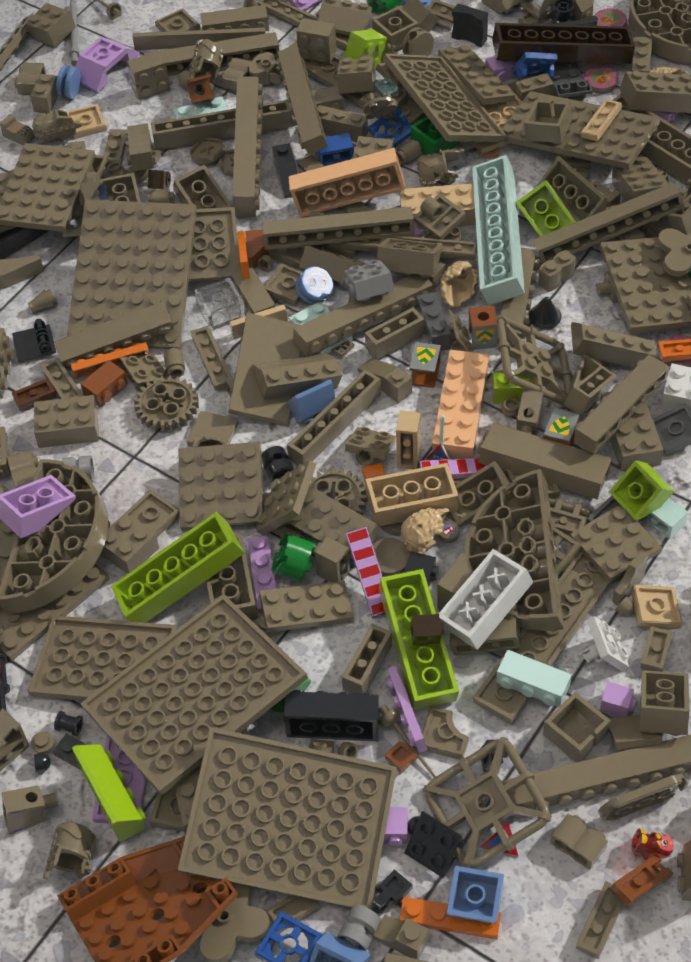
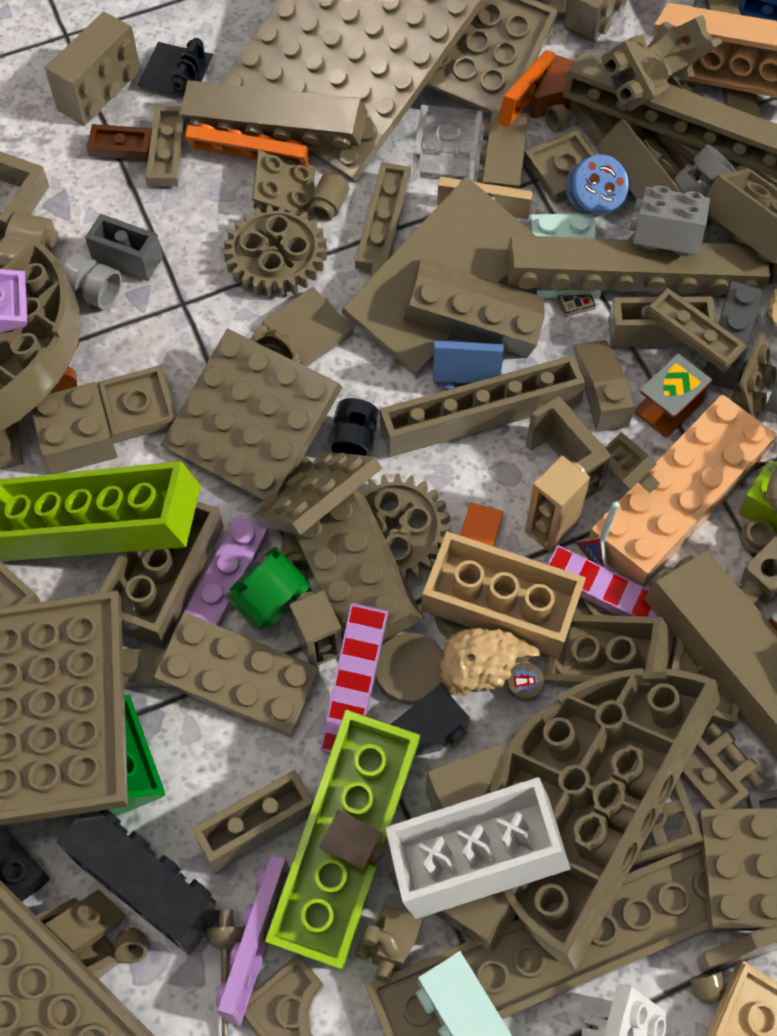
camera: 30 degrees right, 10 degrees up
(42, 301) = (227, 17): dark tan cone -> none
(66, 421) = (128, 196): dark tan brick -> none
(84, 442) = (124, 247): none -> dark grey brick
(104, 383) = (216, 176): dark orange brick -> none
(304, 211) = (643, 70): none -> dark tan hips
(369, 245) = (701, 175): none -> light grey wheel
(375, 443) = (501, 474): dark tan plate -> none
(385, 408) = (569, 437): none -> dark tan panel
(401, 756) = (196, 1008): dark orange plate -> none
(416, 326) = (696, 330): none -> dark tan tile
(429, 402) = (631, 463): none -> dark tan plate
(471, 670) = (389, 941): none -> dark tan piece

